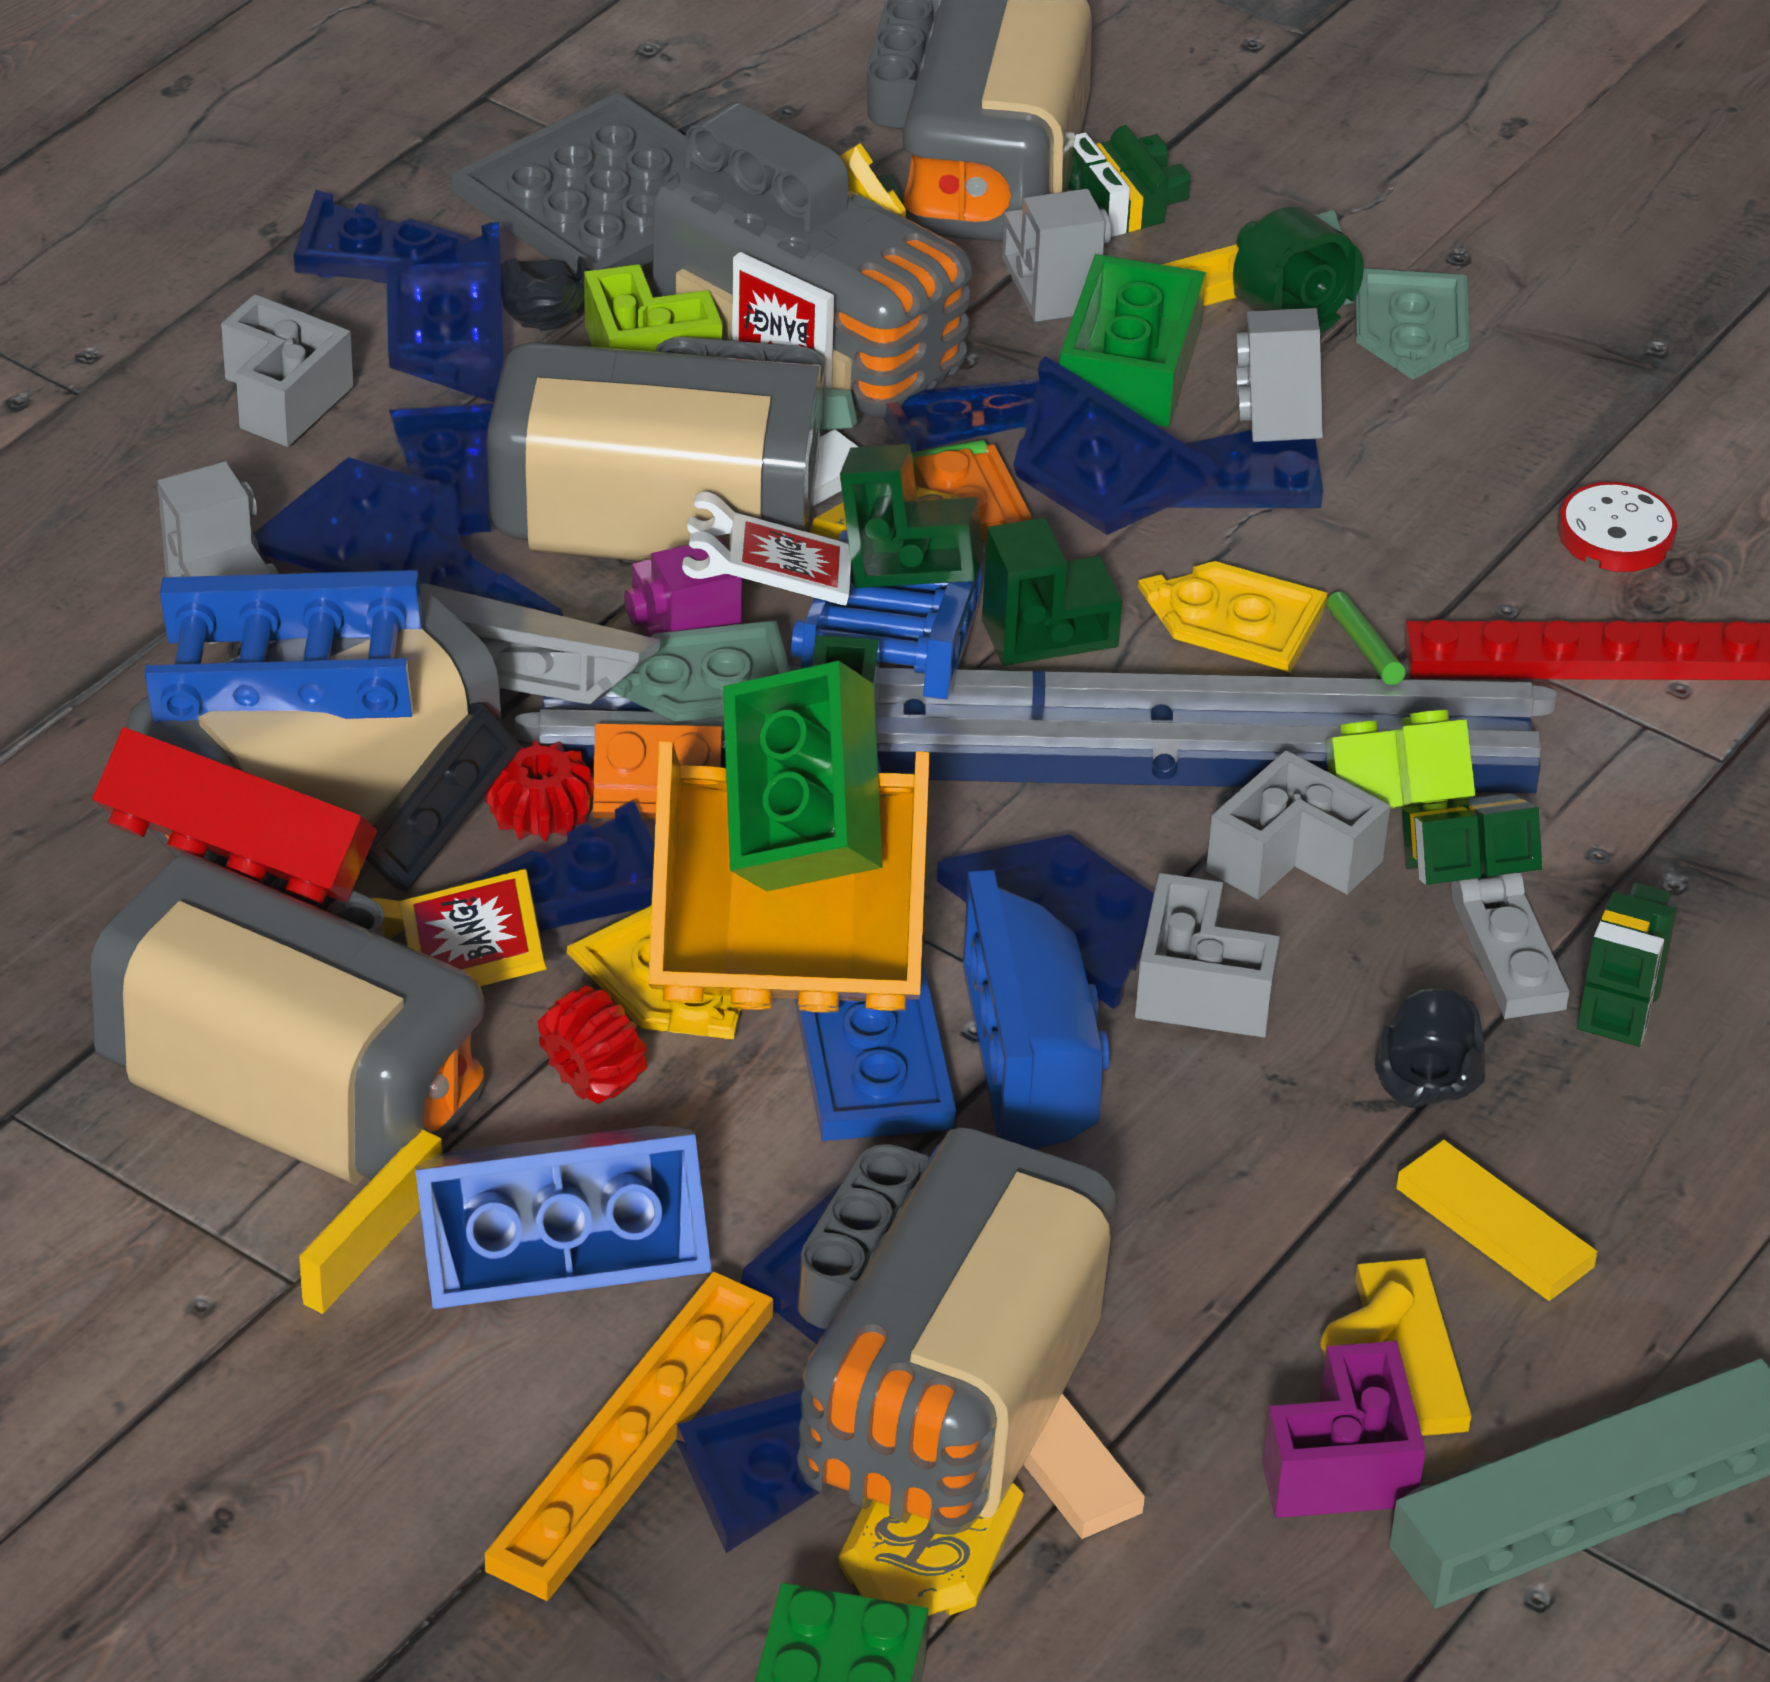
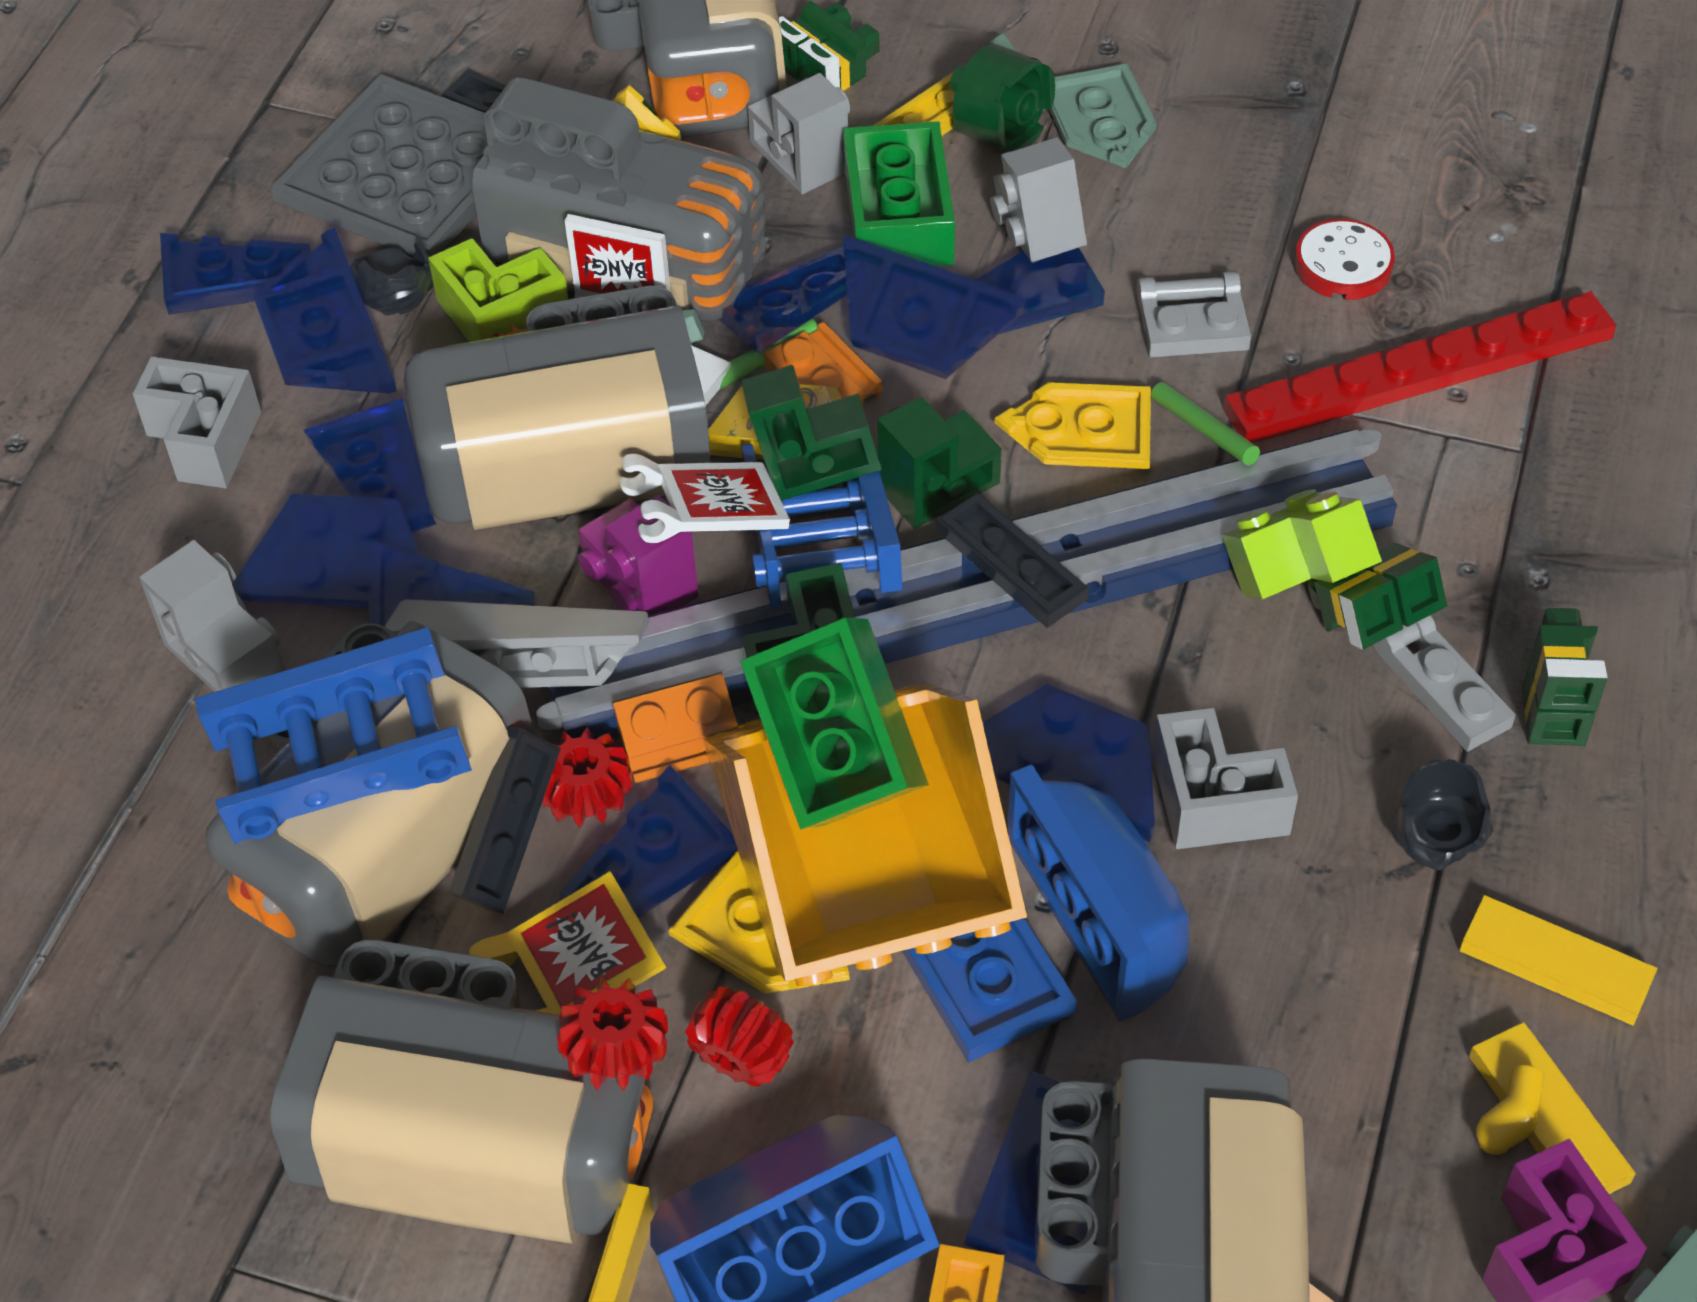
camera: 15 degrees left, 10 degrees up
(234, 816) = (347, 927): red brick -> none
(448, 962) = (612, 1033): none -> red gear
(693, 665) = (695, 620): sand green tile -> none
(1082, 704) = (1012, 560): none -> black tile
(1298, 820) = (1236, 617): light grey brick -> none
(1414, 551) = (1196, 326): none -> light grey plate

